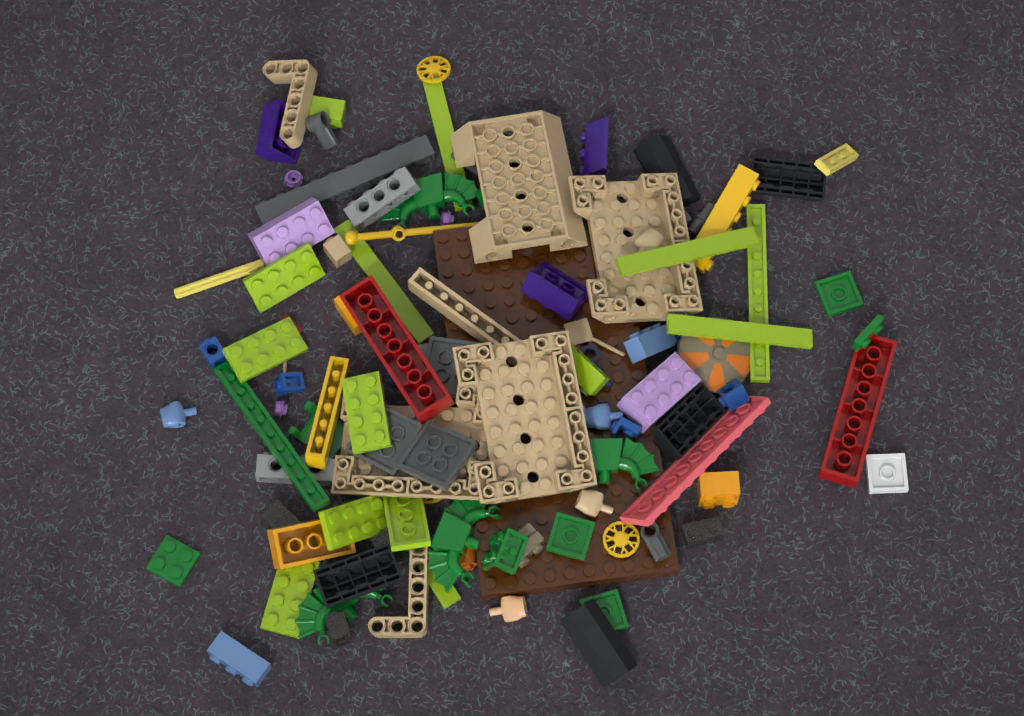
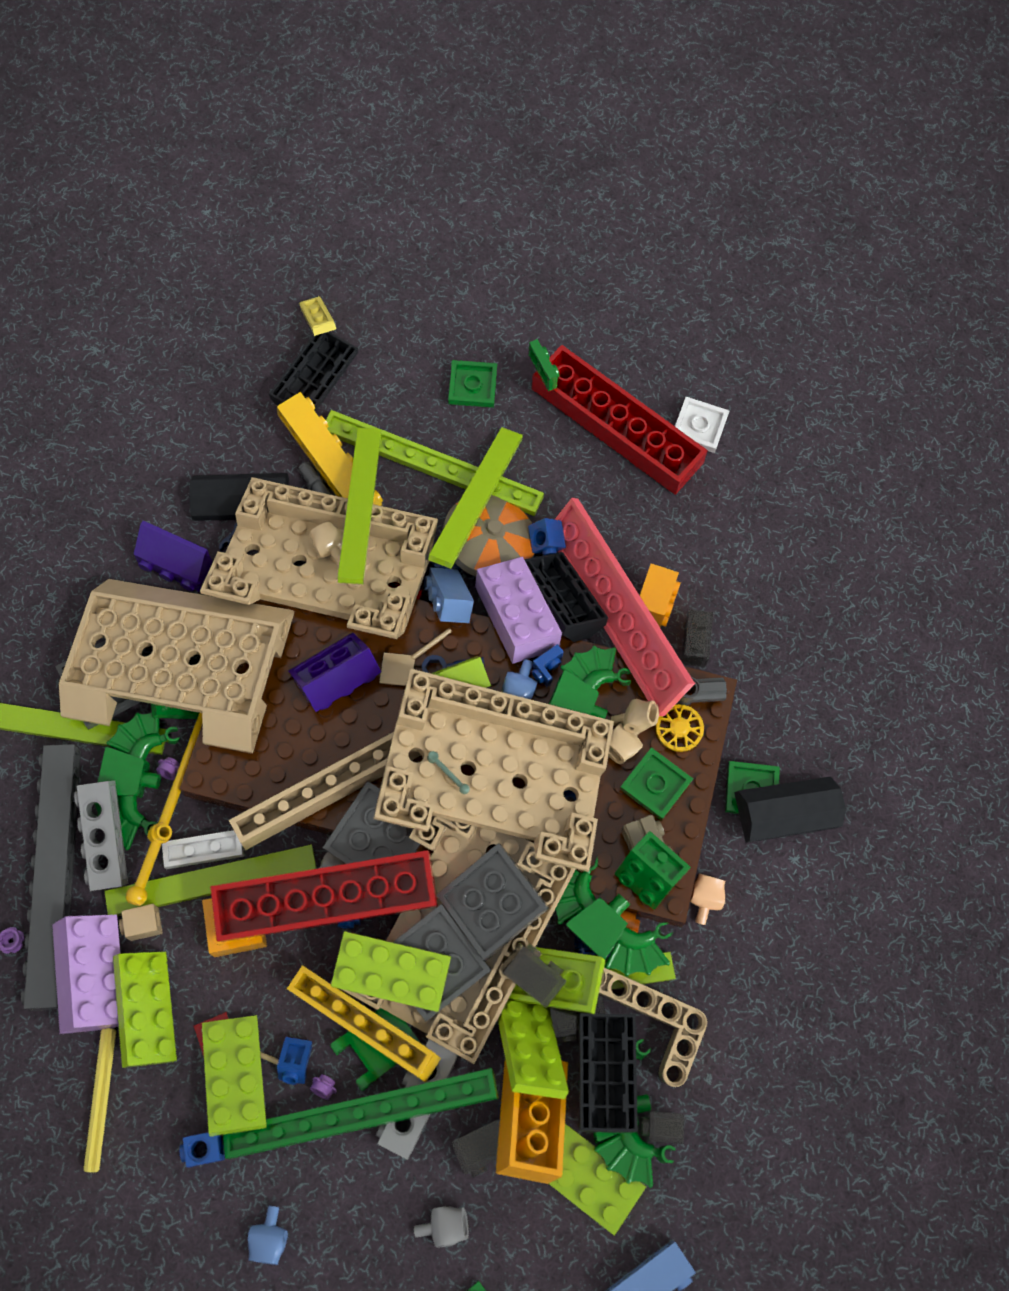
camera: 70 degrees left, 0 degrees up
(224, 519) = (447, 1226): none -> light grey piece
(398, 262) = (201, 849): none -> white plate
(400, 500) = (533, 974): none -> clear smoke brick
(514, 371) = (433, 758): none -> sand green hinge
(612, 503) = (638, 716): none -> tan piece

